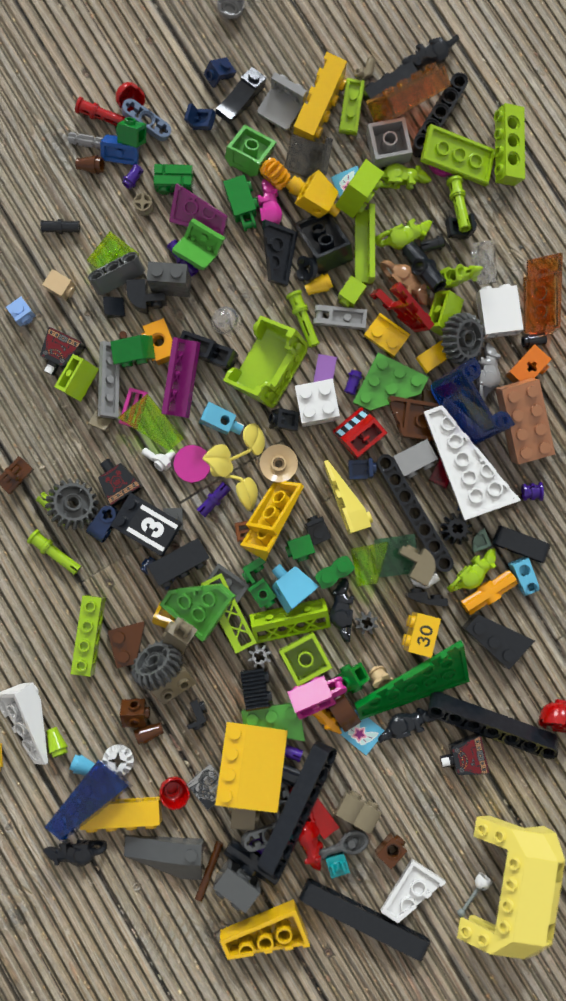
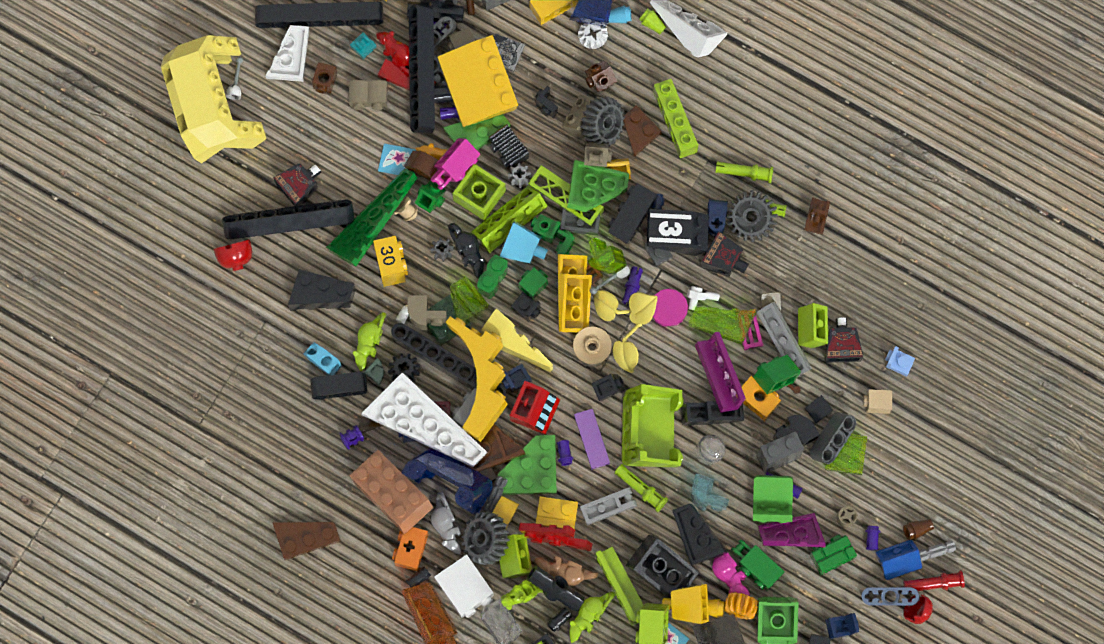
camera: 150 degrees right, 10 degrees down
(60, 226) = (910, 456): black pin -> none
(131, 132) = (895, 573): green brick -> none
(148, 733) = (580, 65): reddish brown cone -> none
(174, 793) = (531, 31): red hair -> none
(211, 418) = (672, 351): medium azure torso -> none
(216, 517) = (621, 274): none -> hinge
(226, 534) = (606, 259): none -> clear neon green brick
(254, 286) = (702, 495): none -> clear light blue brick
(302, 273) = (663, 532): black piece -> none
(317, 402) = (586, 413): white brick -> none
(319, 284) = (643, 526): yellow cone -> none
(351, 293) = (609, 532): lime brick -> none
(351, 843) = (361, 66): dark grey piece -> none
(387, 478) = (487, 404): none -> yellow arch
(402, 724) = (367, 181): black animal -> none
(422, 597) = (391, 297): black slope -> none
(432, 375) = (495, 494): none -> dark grey axle
(489, 592) = (347, 329): light orange piece -> none

